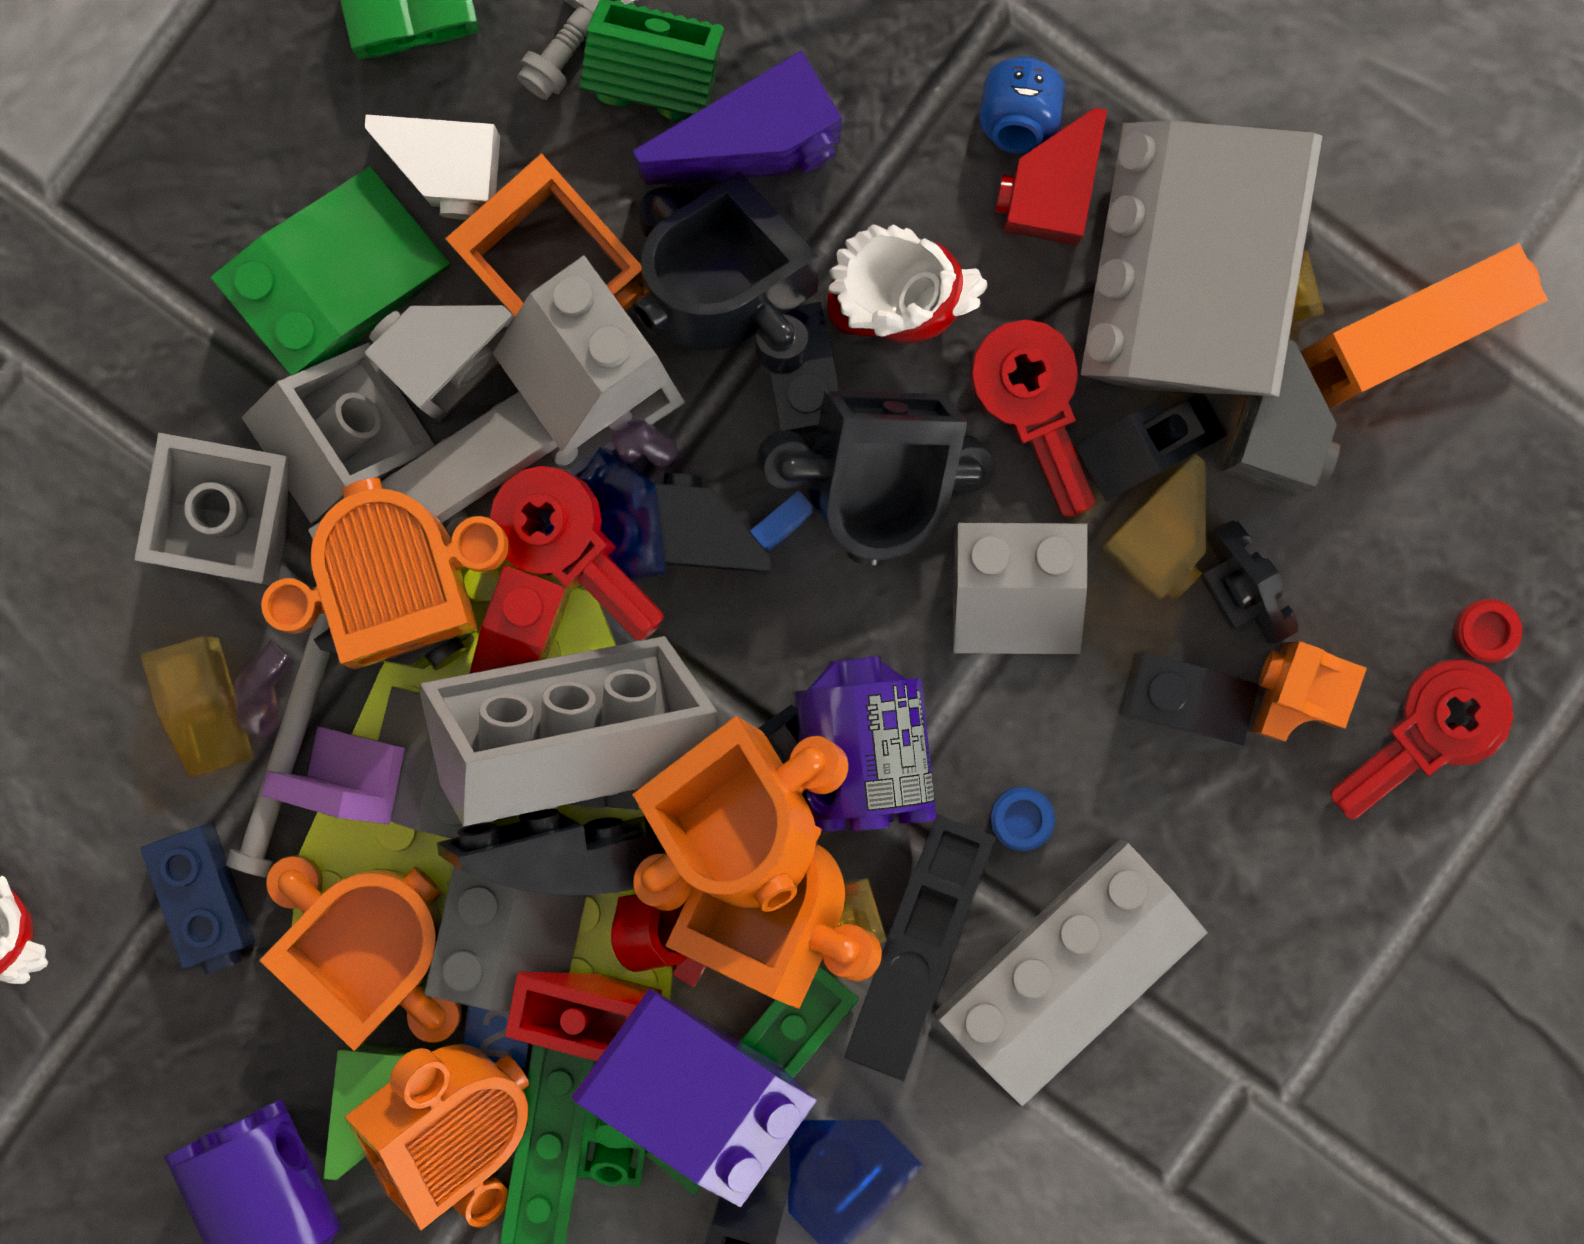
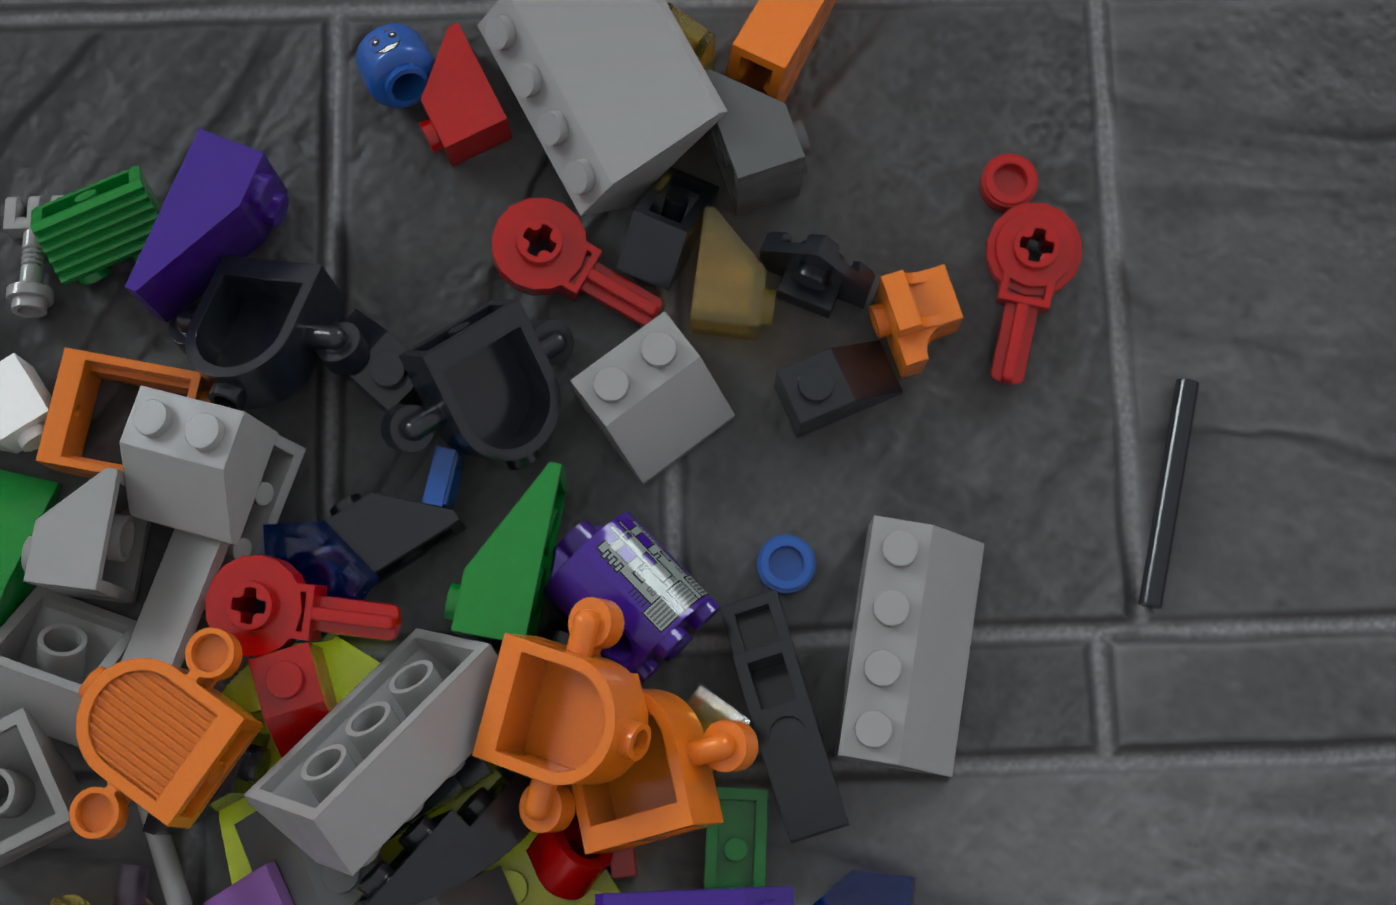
camera: 40 degrees left, 10 degrees down
(646, 439) = (291, 495): clear purple arm -> none
(773, 657) = (508, 574): none -> green slope
(899, 286) = (401, 251): white hair -> none
(1403, 1012) = (1168, 494): none -> black bar

